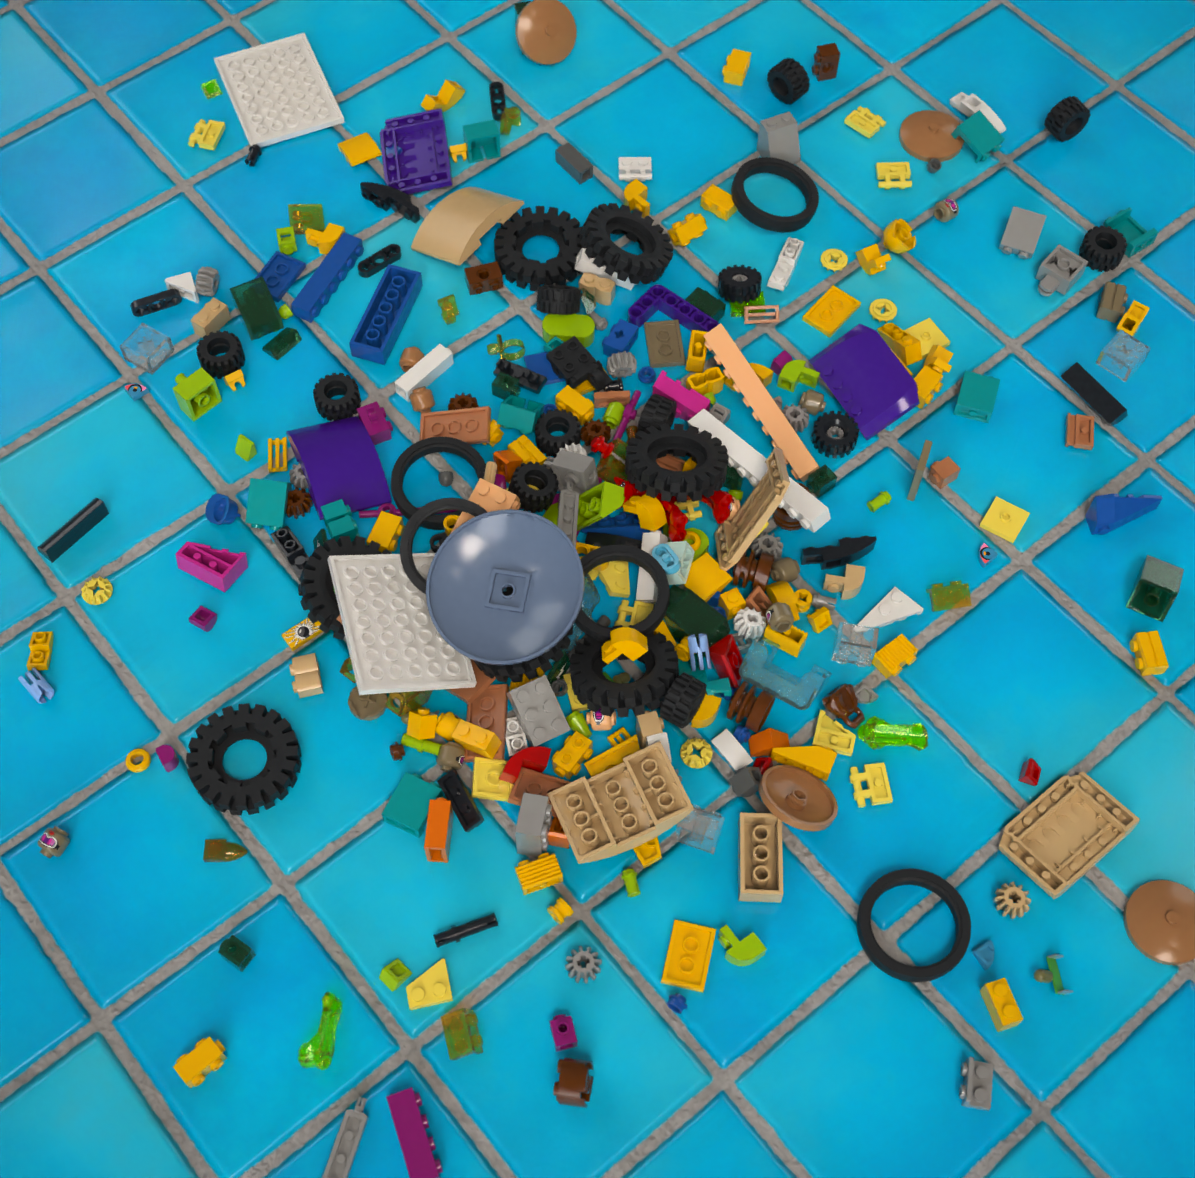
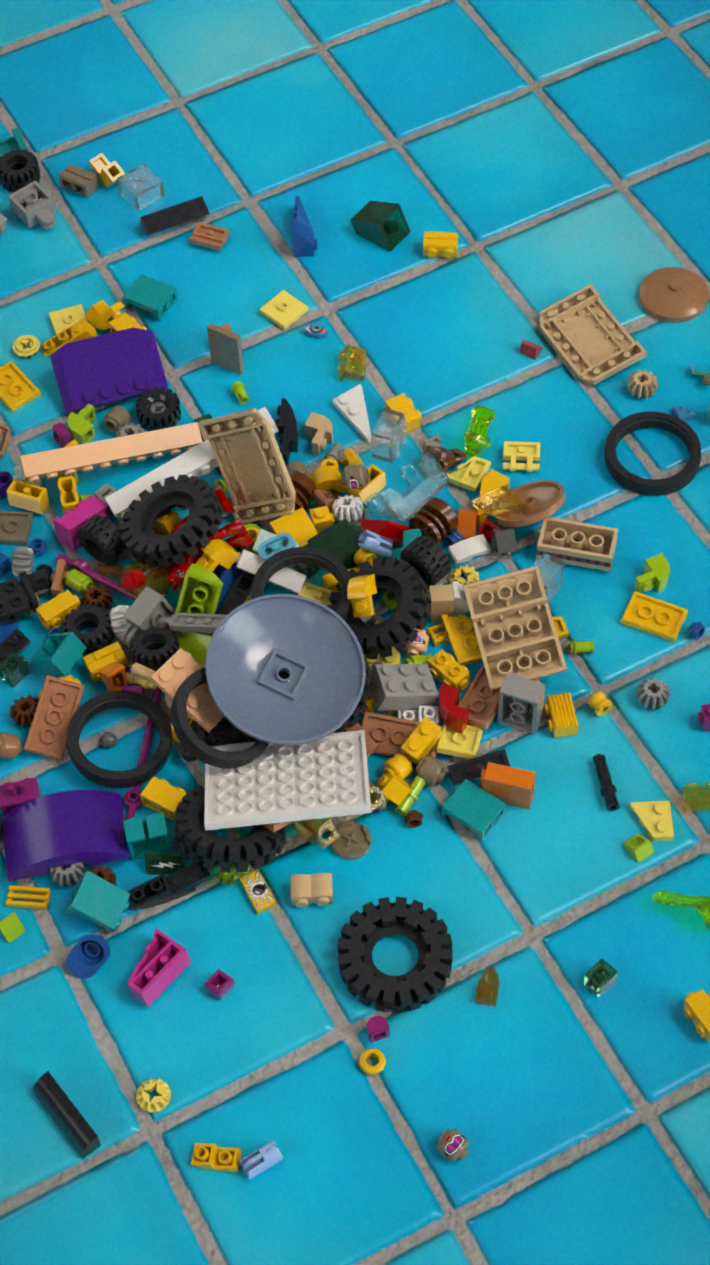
camera: 75 degrees left, 5 degrees down
(785, 763) = (498, 501): none -> clear yellow plate

